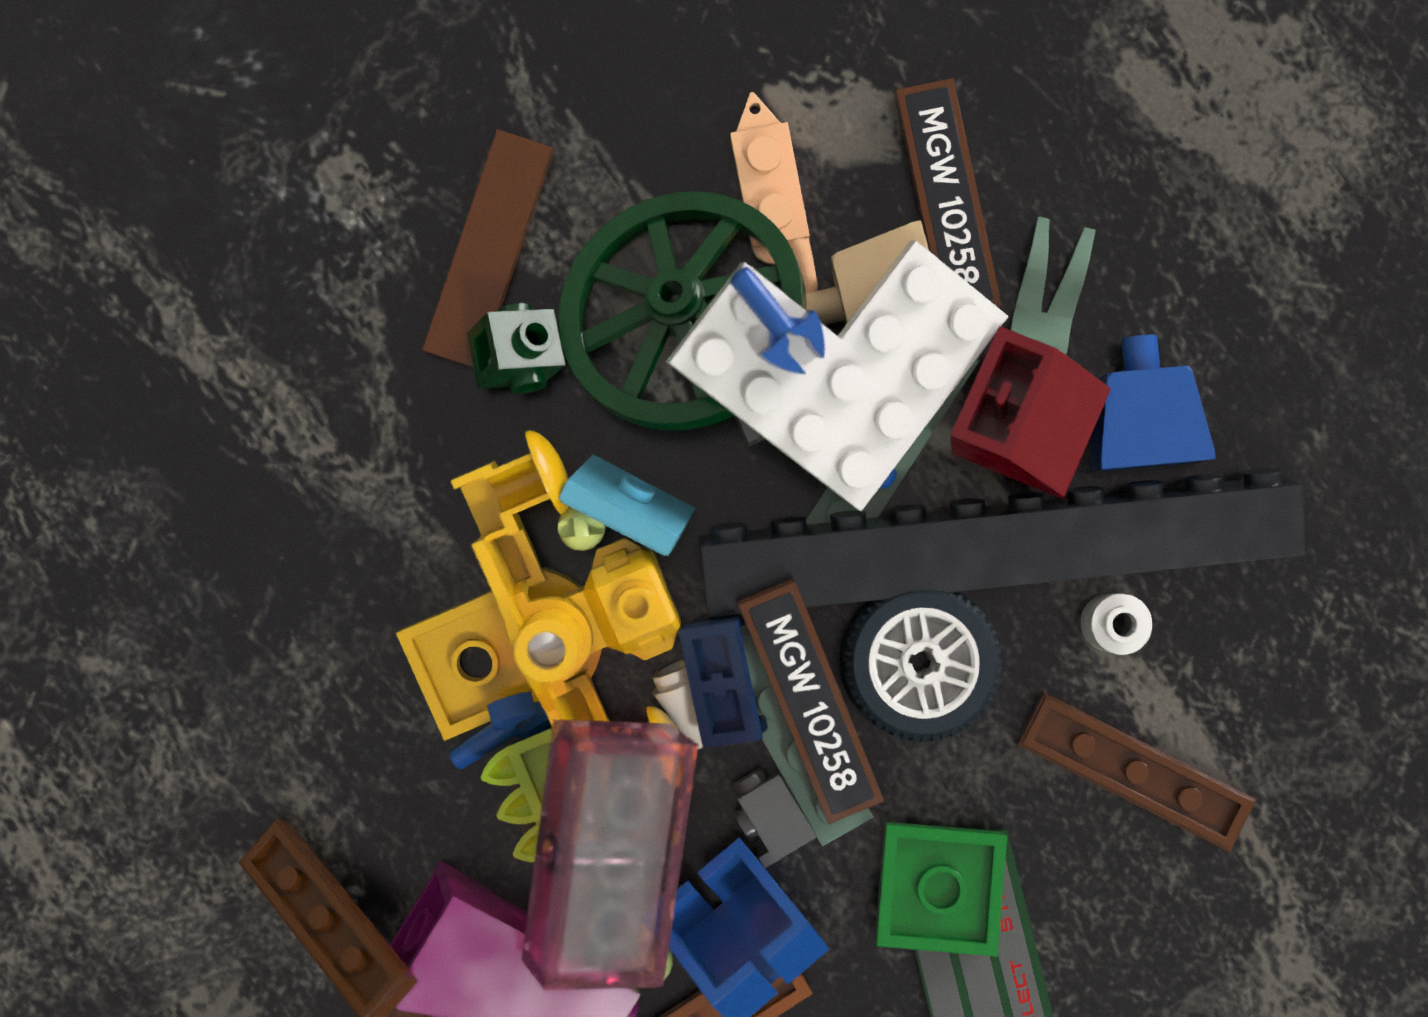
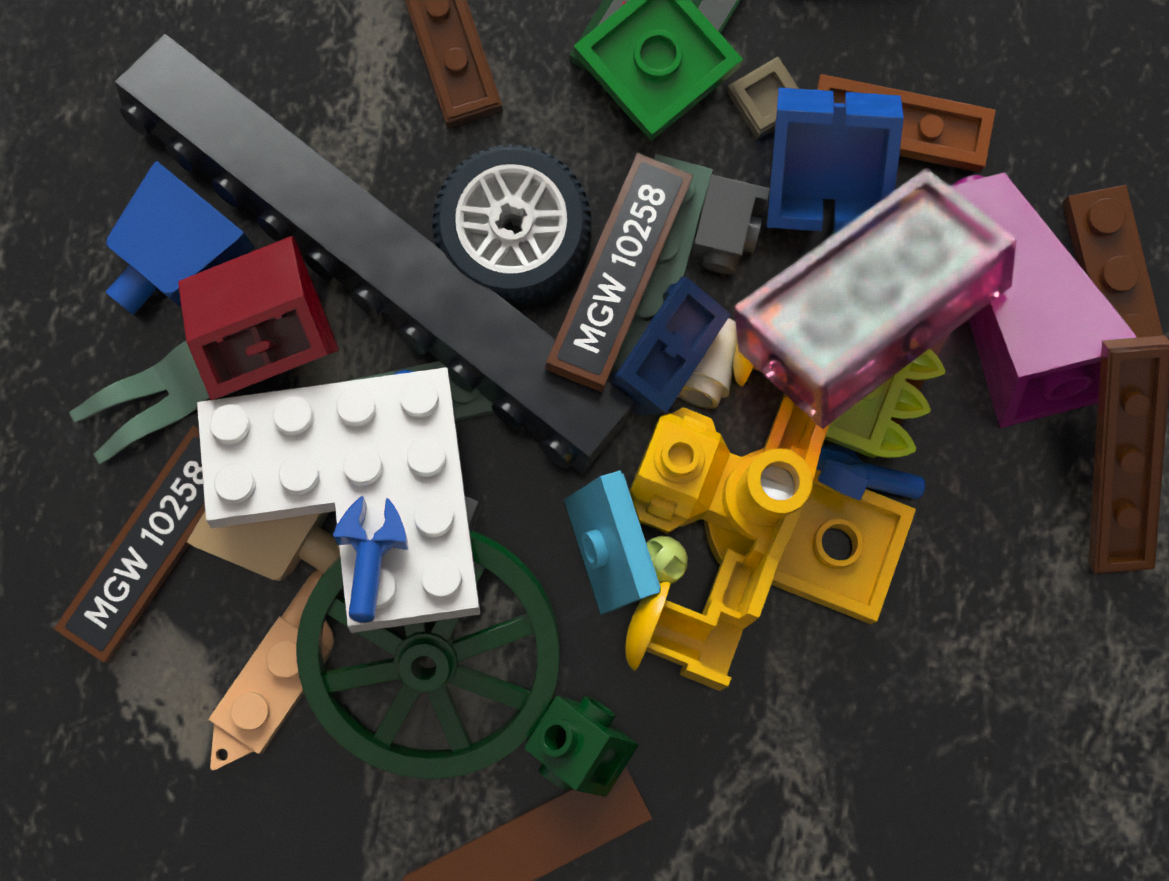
camera: 135 degrees left, 5 degrees down
(844, 935) = (757, 96): none -> dark tan tile
(1098, 623) = (351, 133): white brick -> none

